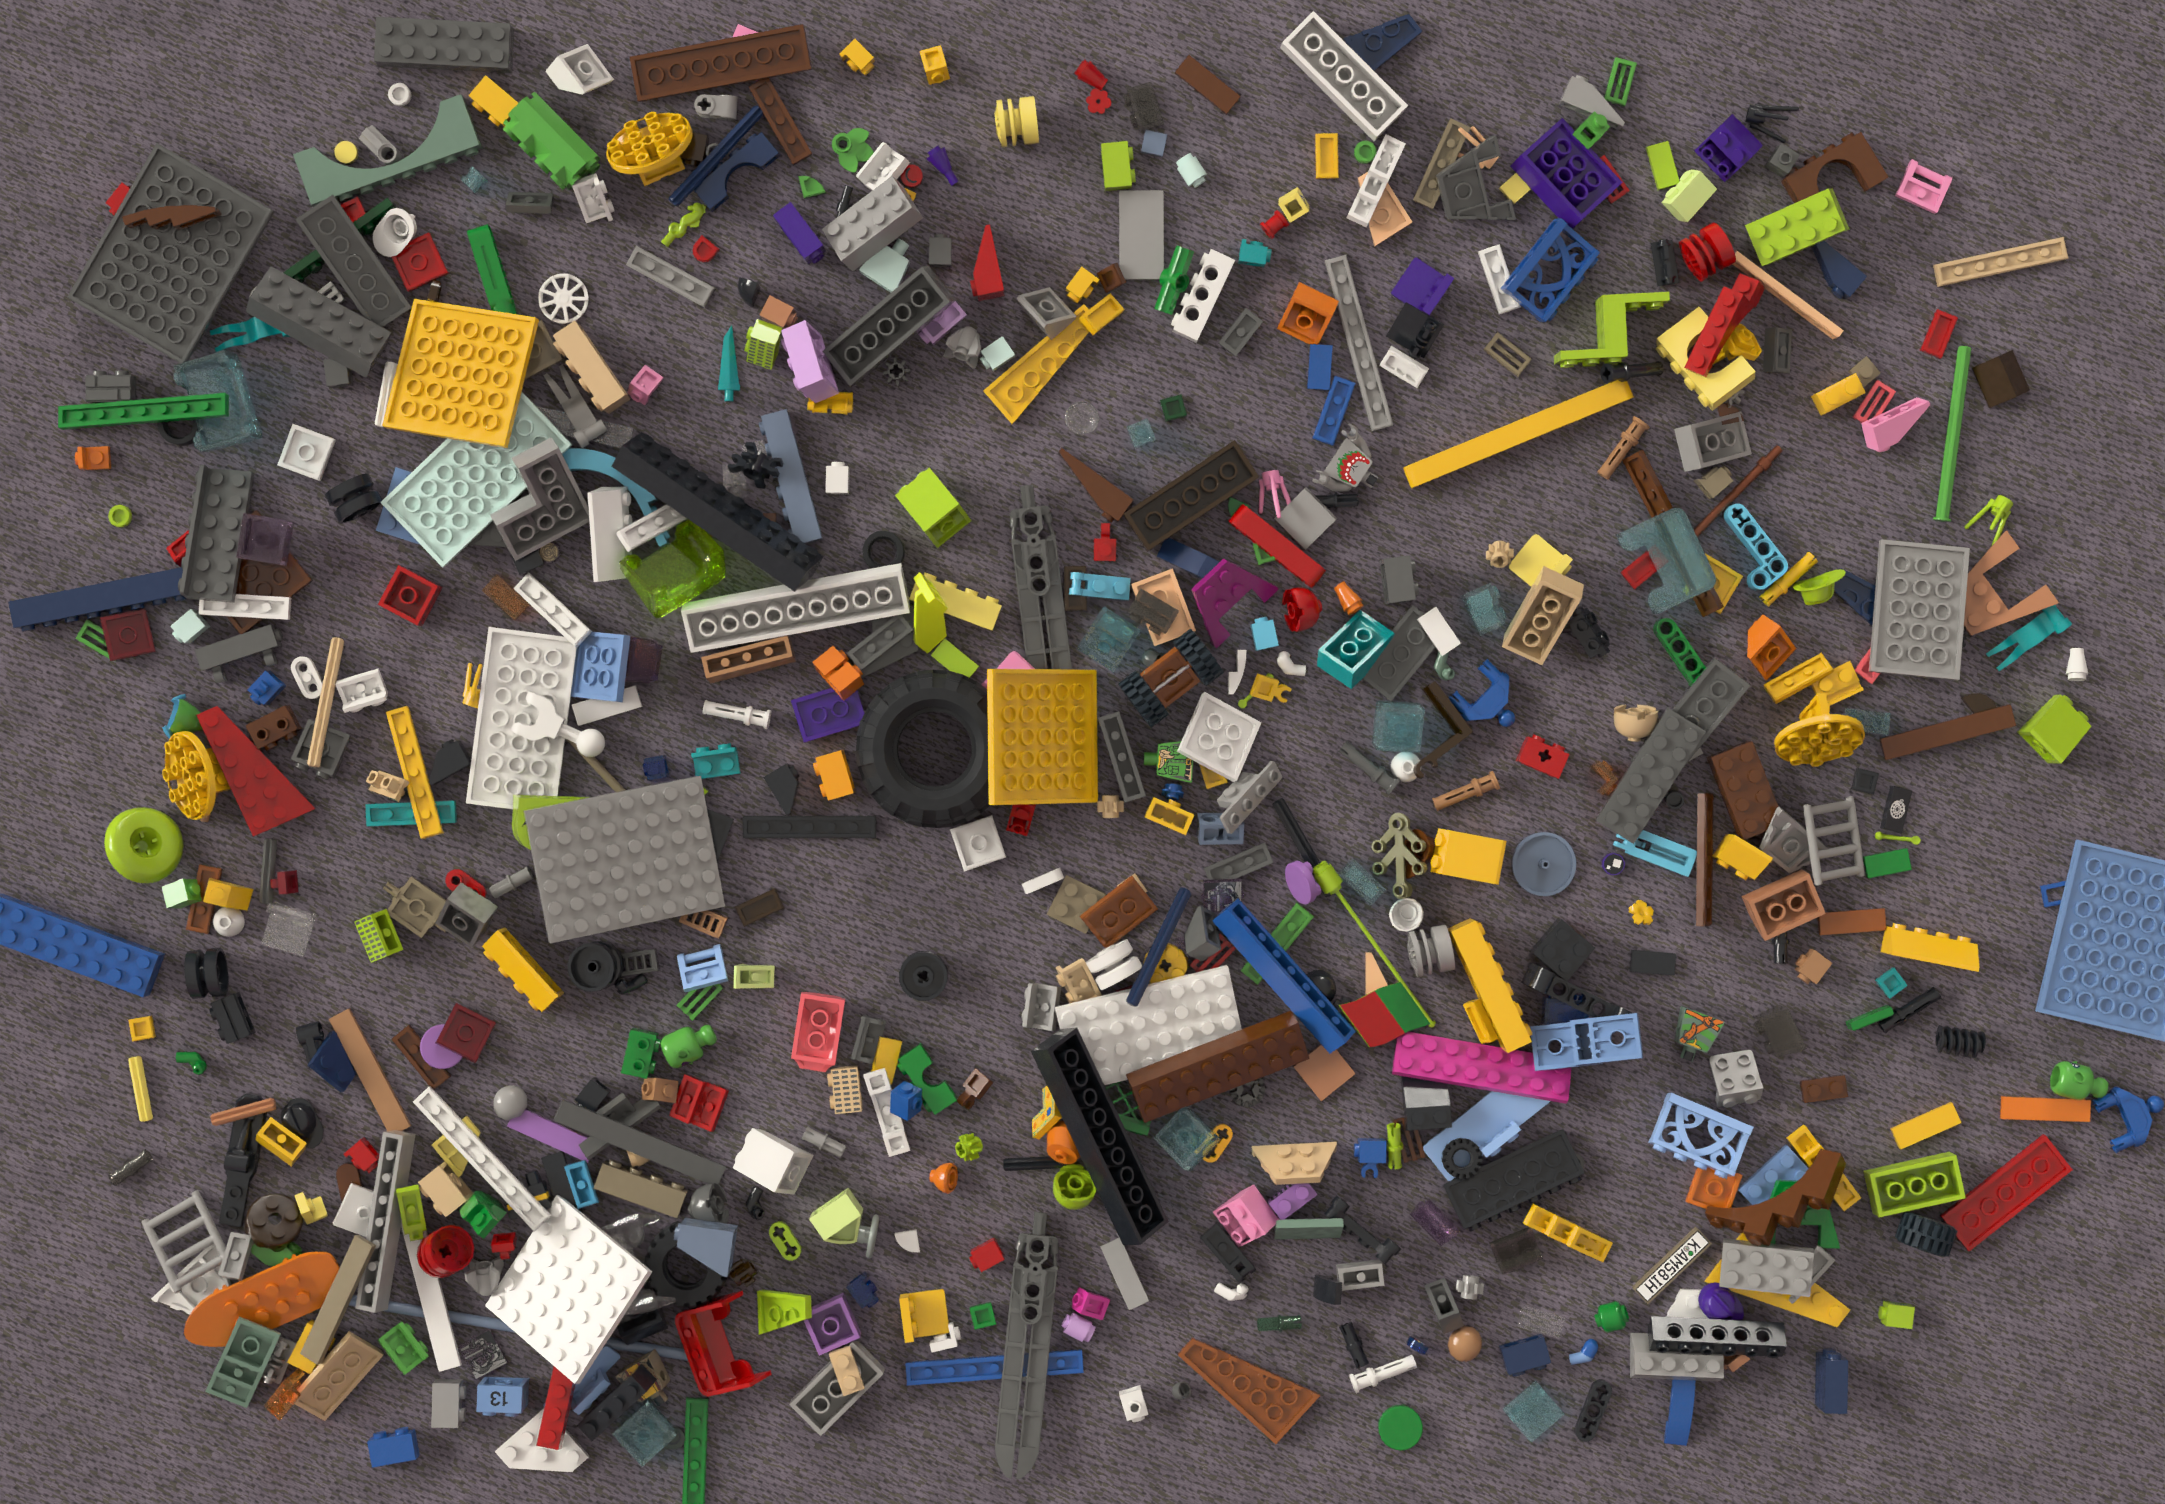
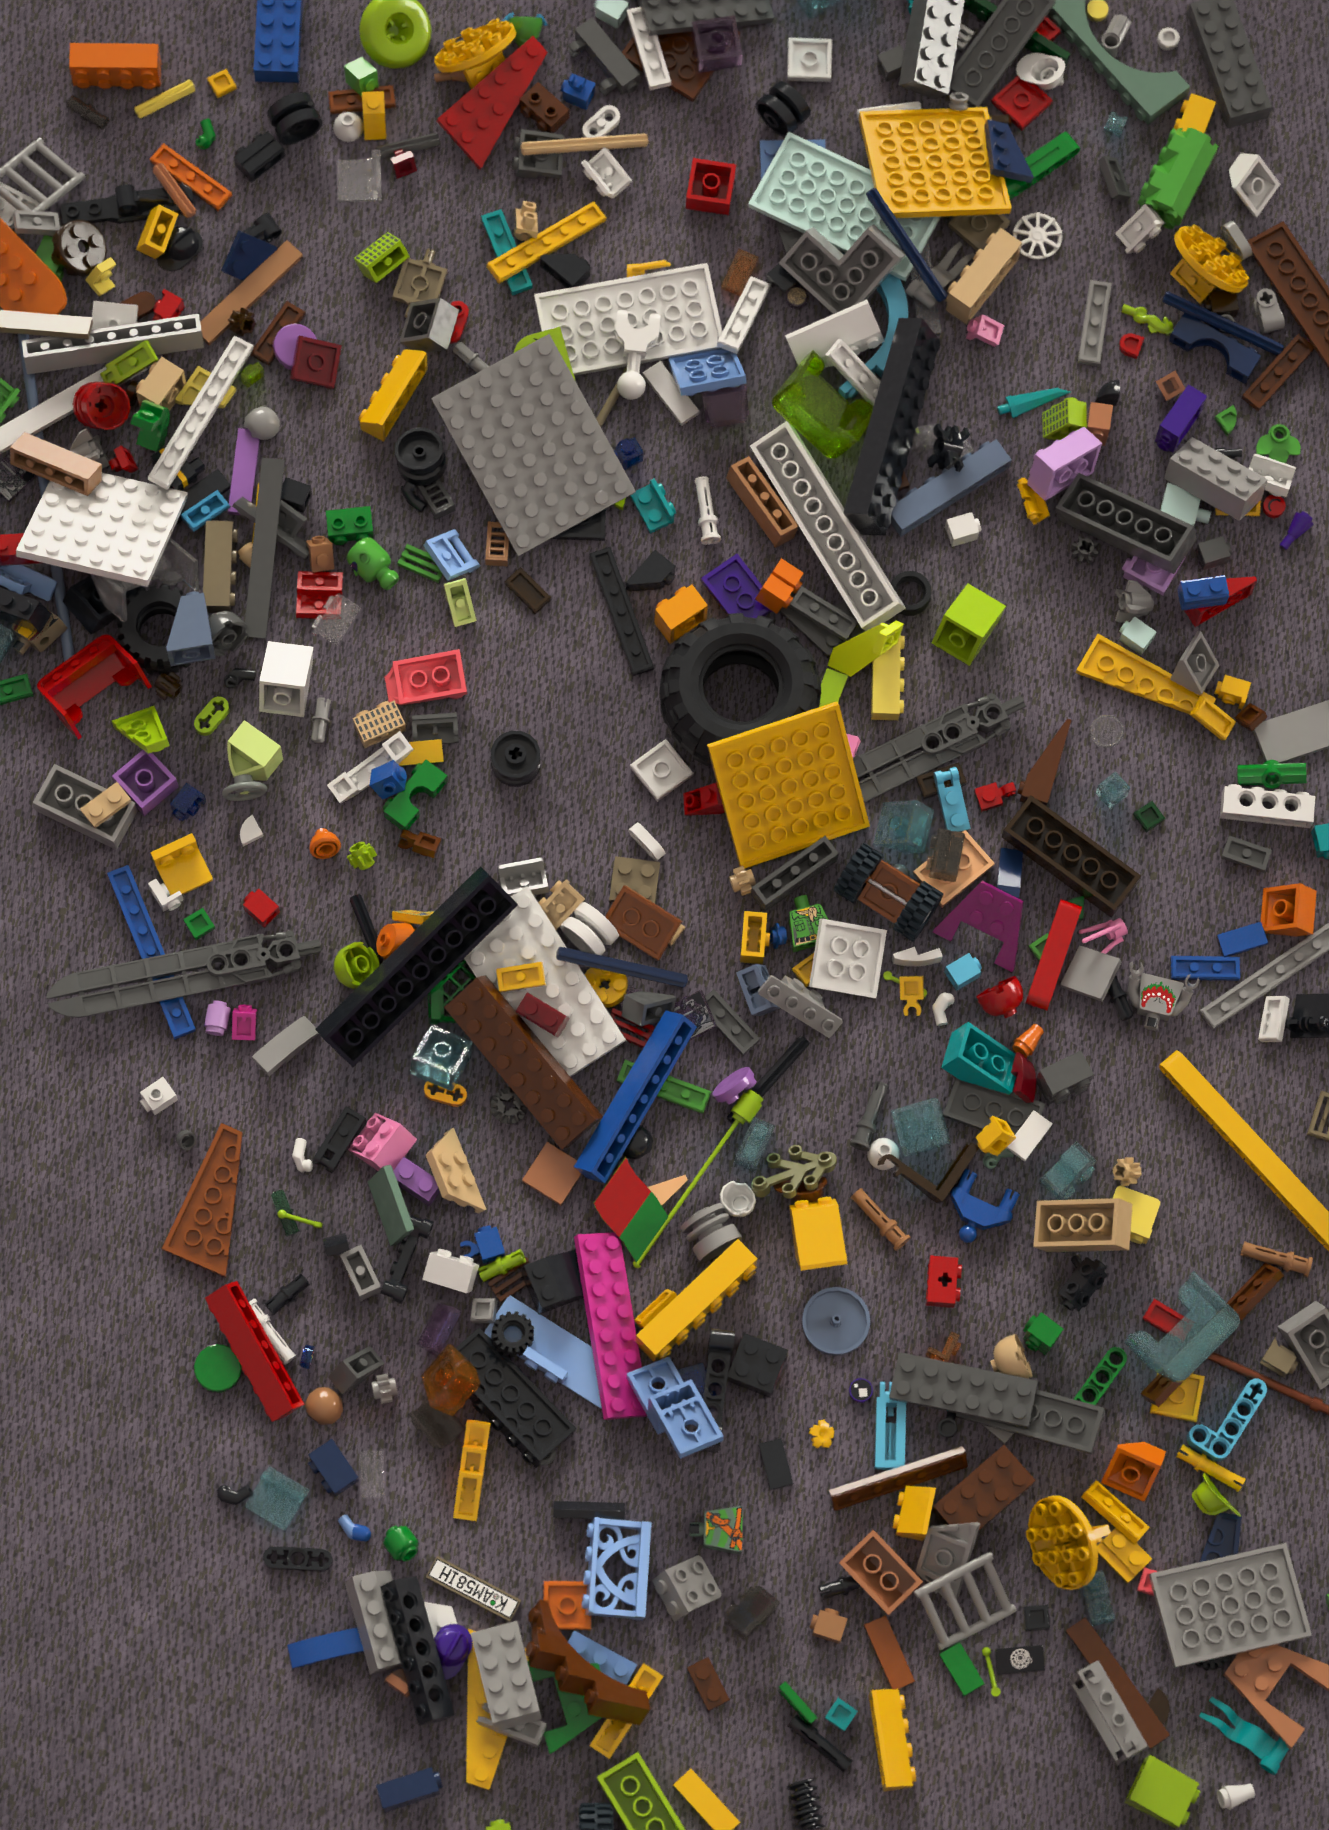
camera: 65 degrees right, 15 degrees down
(92, 1128) = (115, 65): none -> orange brick
(231, 1089) = (190, 175): none -> orange tile
(400, 324) = (958, 101): none -> light grey bush
(400, 1089) = (242, 322): none -> dark brown gear
(440, 1219) = (131, 392): none -> dark brown tile
(456, 1096) = (252, 374): none -> clear neon green plate
(472, 301) = (1004, 153): none -> dark blue wing
(490, 1312) = (56, 464): none -> brick
(541, 433) = (906, 245): none -> dark blue axle
(633, 108) = (1236, 240): none -> light grey beam
(731, 1098) = (337, 618): none -> clear bracket
(762, 230) = (1170, 385): none -> nougat brick
(988, 281) = (1203, 592): none -> blue brick
(1139, 1043) = (521, 977): none -> yellow plate
(1182, 1036) = (542, 1014): none -> dark red brick
(1283, 1328) = (282, 1214): none -> lime hinge
(1378, 612) = (1026, 1078): none -> dark red slope
(1386, 1194) = (451, 1271): none -> white brick
(1399, 1392) = (254, 1351): none -> red brick
(1428, 1175) = (483, 1310): none -> light grey tile
(1431, 663) = (995, 1136): none -> yellow brick
(1488, 1230) = (450, 1381): none -> clear orange slope
(1520, 1449) = (234, 1497): none -> black arm
(1623, 687) = (1041, 1333): none -> green brick
(1639, 1142) = (589, 1510): none -> black tile
(1981, 754) = (1108, 1713): none -> light grey window

